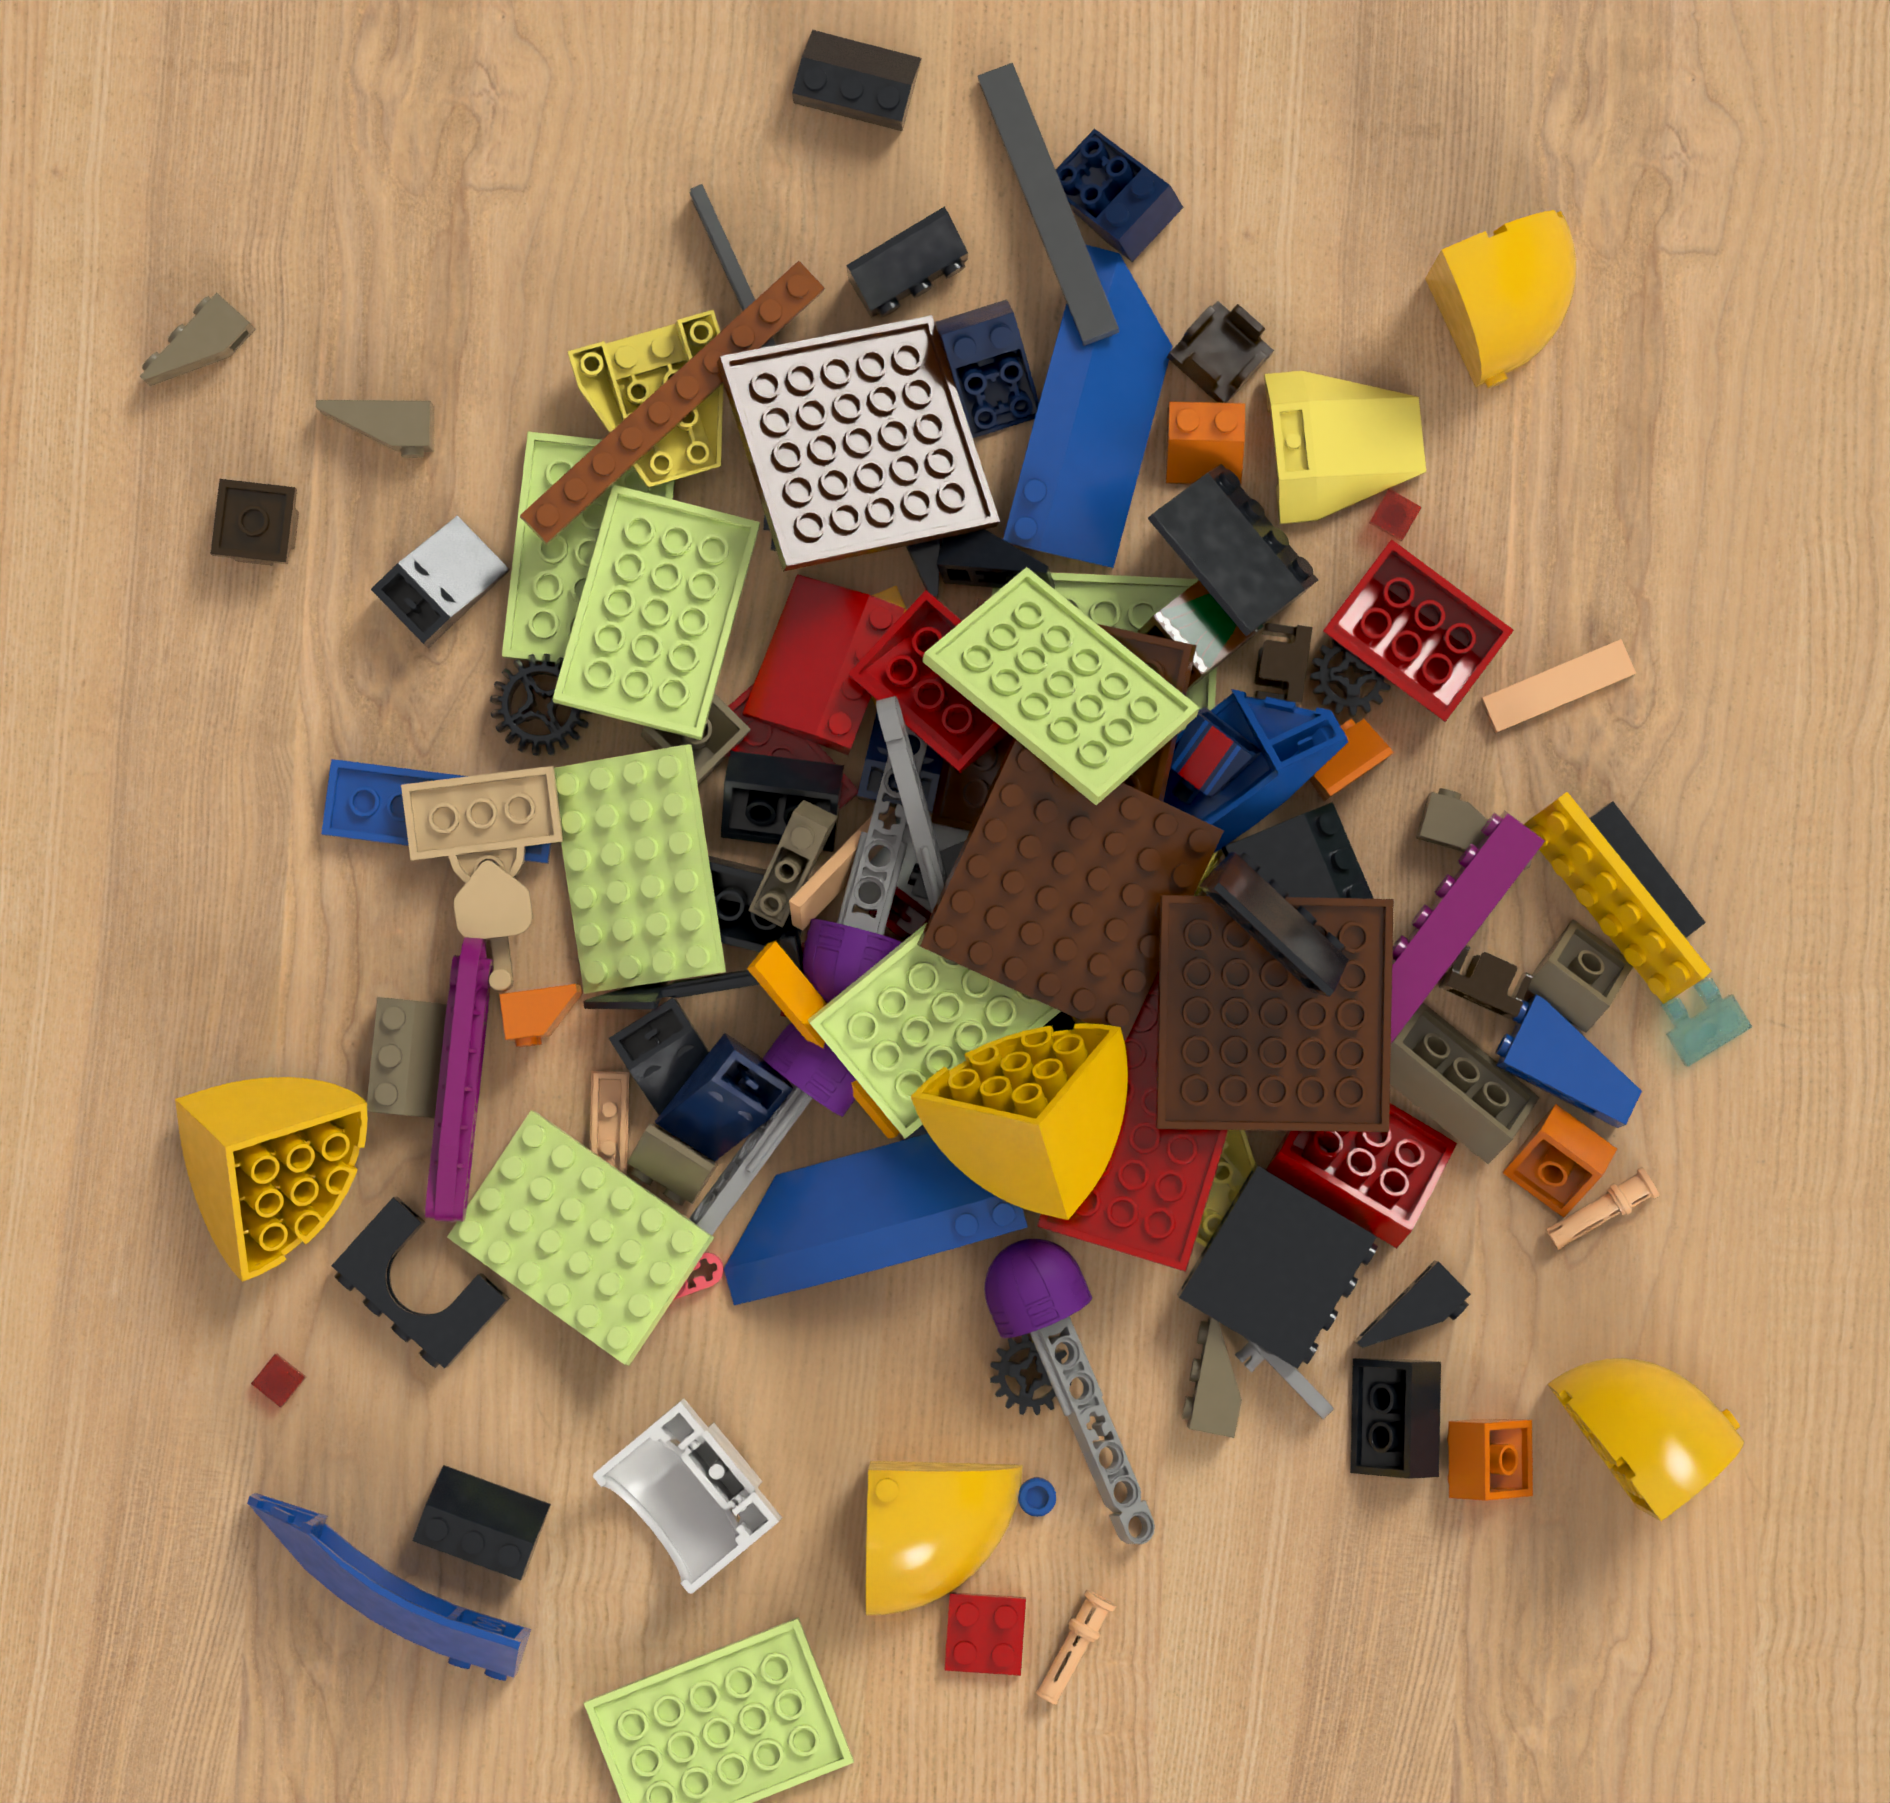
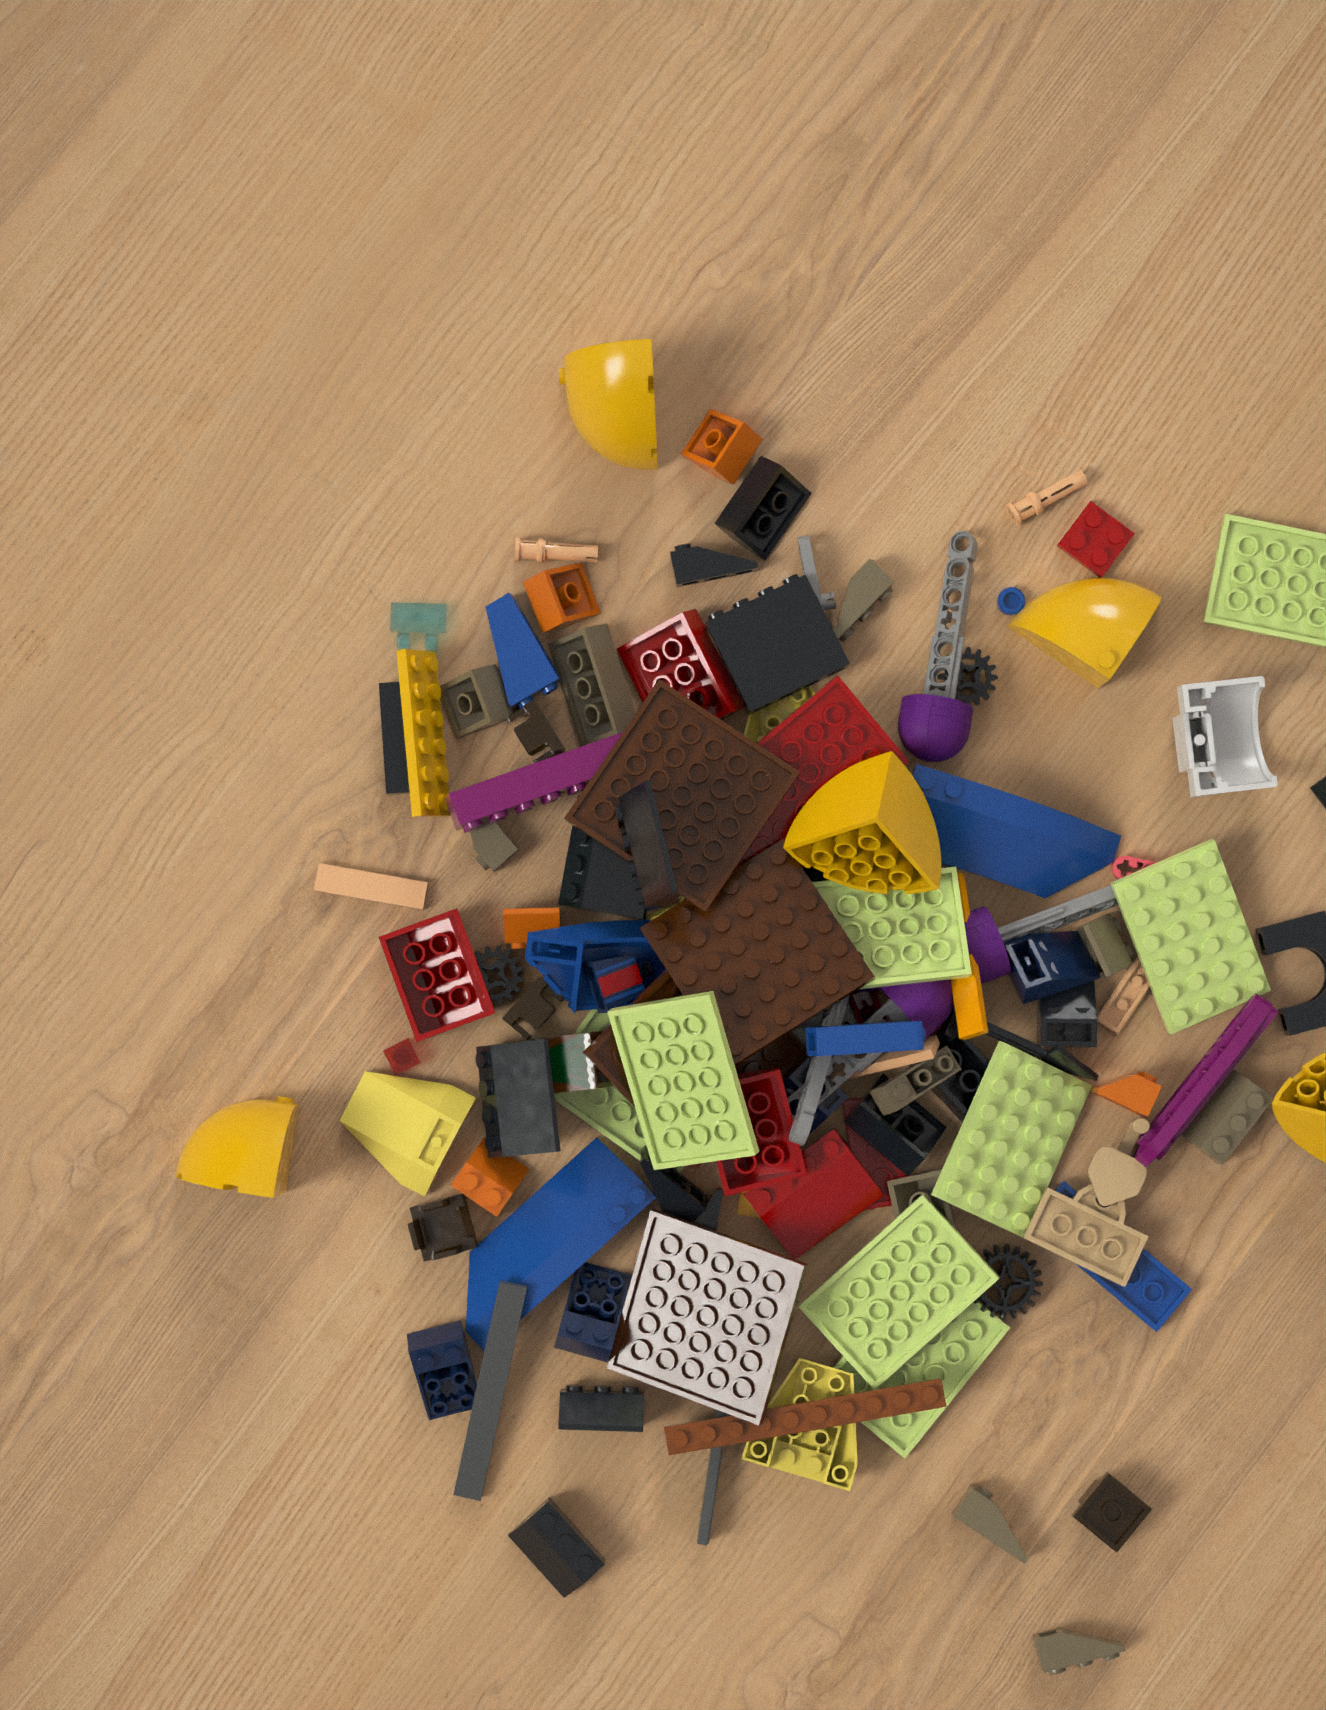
camera: 150 degrees left, 0 degrees up
(440, 581) = (1018, 1399): slope -> none
(884, 869) = (865, 1038): none -> blue slope

